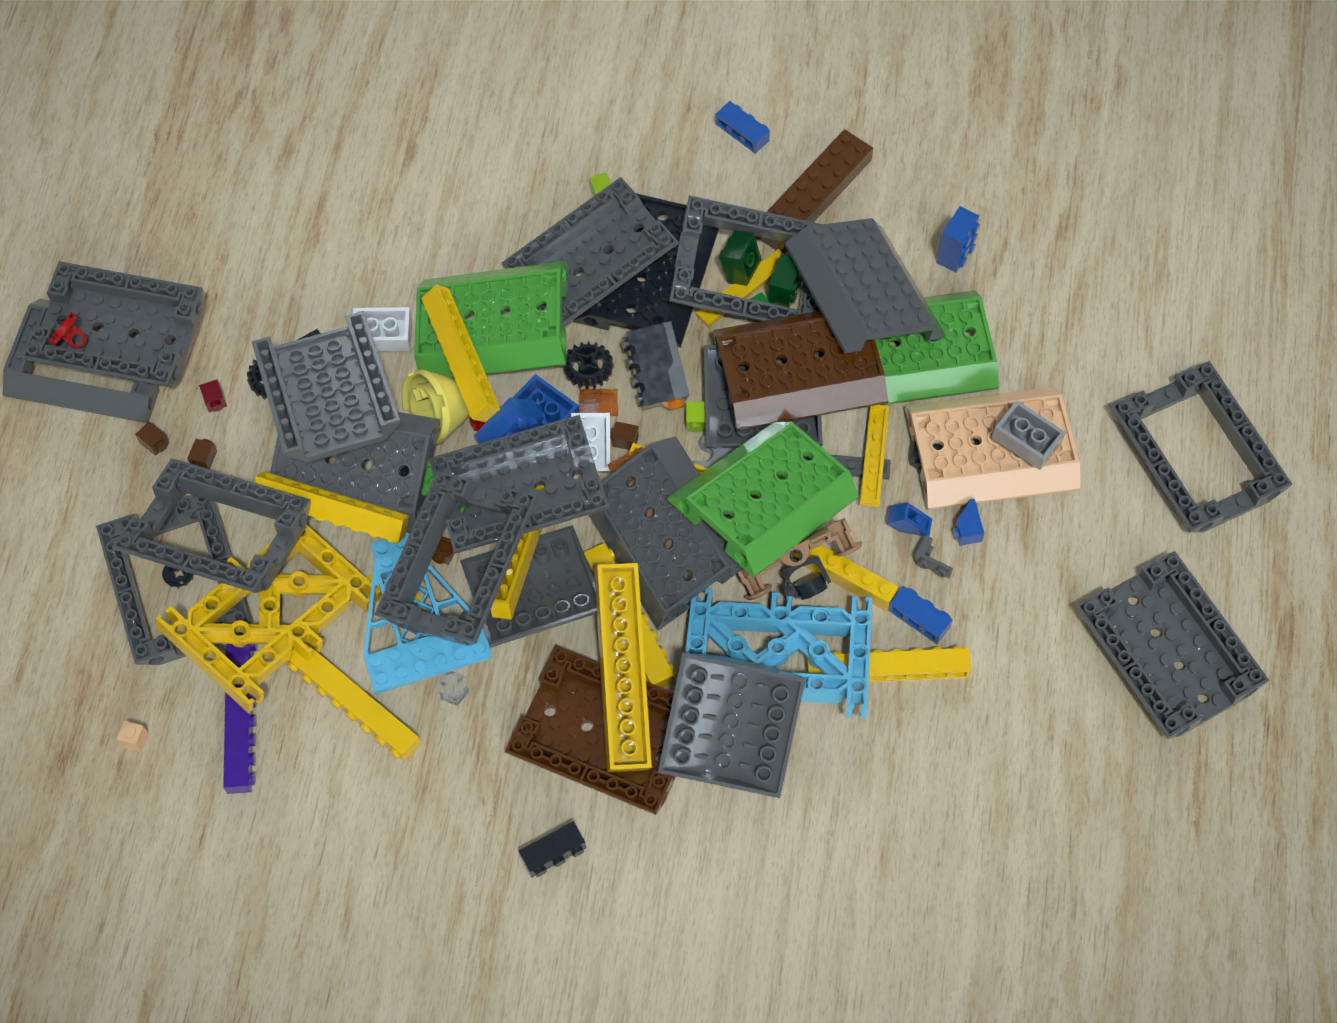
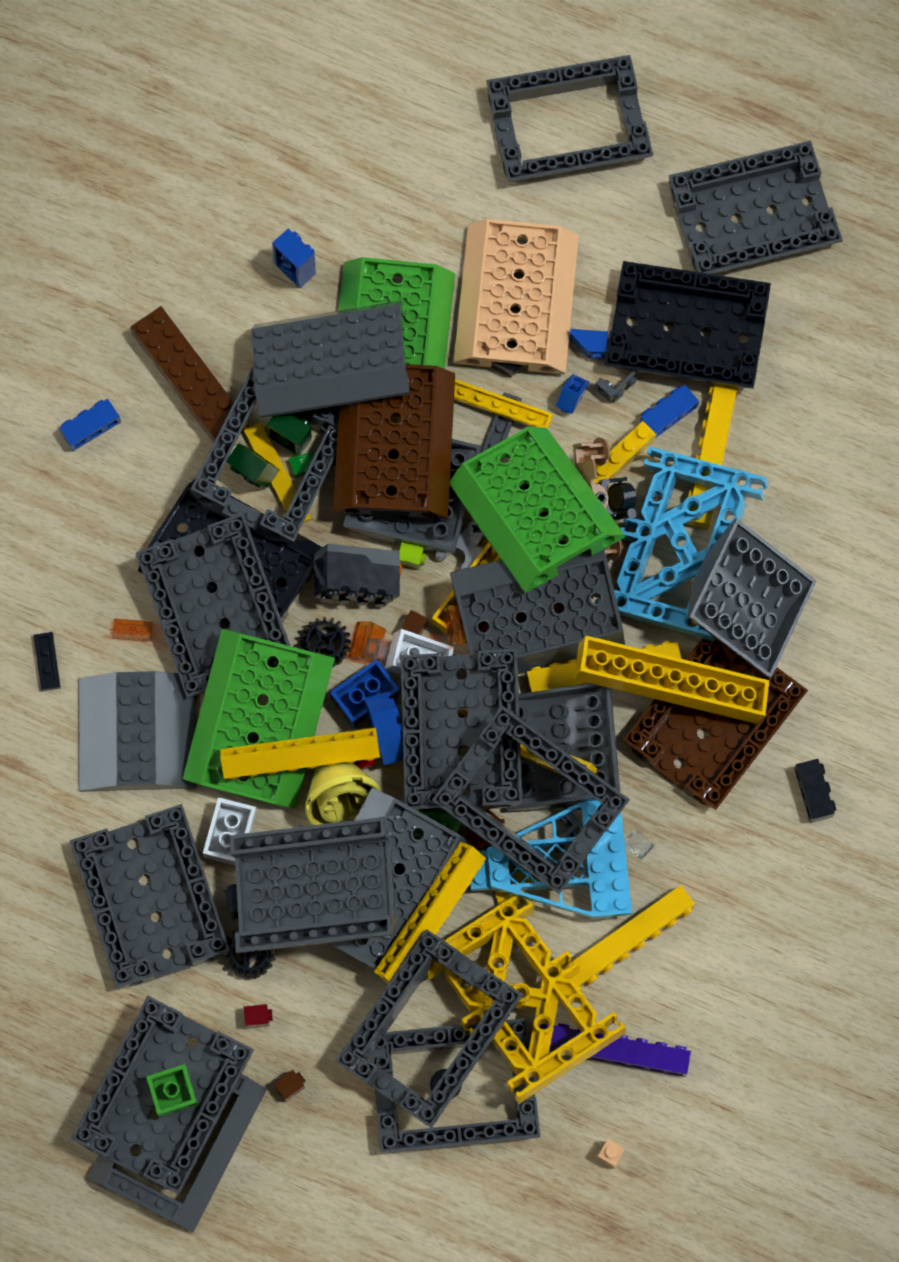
camera: 80 degrees left, 10 degrees up
(66, 331) = (162, 1142): red tile -> none
(114, 326) = (172, 1091): none -> bright green brick
(202, 453) = (321, 1037): reddish brown brick -> none
(295, 266) = (125, 907): none -> dark grey slope
(460, 232) = (134, 731): none -> dark grey slope
(510, 152) = (47, 661): none -> black tile
(557, 206) = (132, 630): none -> clear orange panel
(599, 182) = (122, 580): lime brick -> none
(1028, 435) = (529, 259): light grey brick -> none
(1043, 608) = (691, 305): none -> black slope

